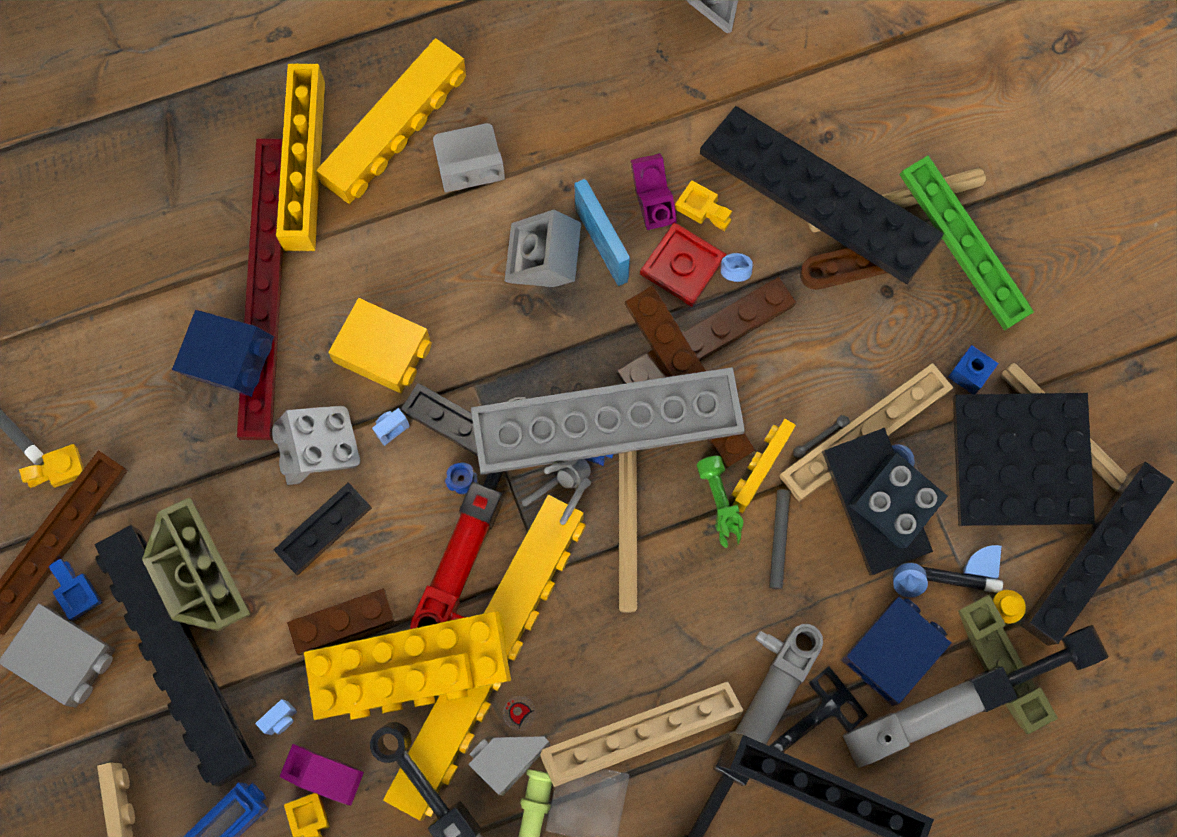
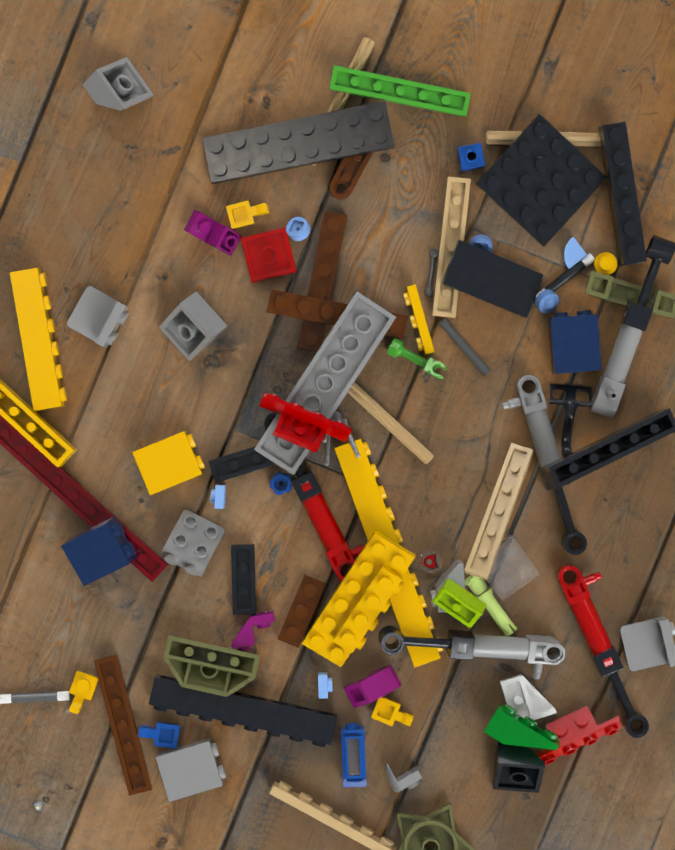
camera: 45 degrees left, 15 degrees up
(265, 583) = (246, 635): none -> magenta slope
(499, 777) = (459, 603): none -> lime slope
(541, 430) = (301, 425): none -> red bracket
(601, 232) = (214, 286): dark azure tile -> none
(898, 500) = (503, 271): black brick -> none

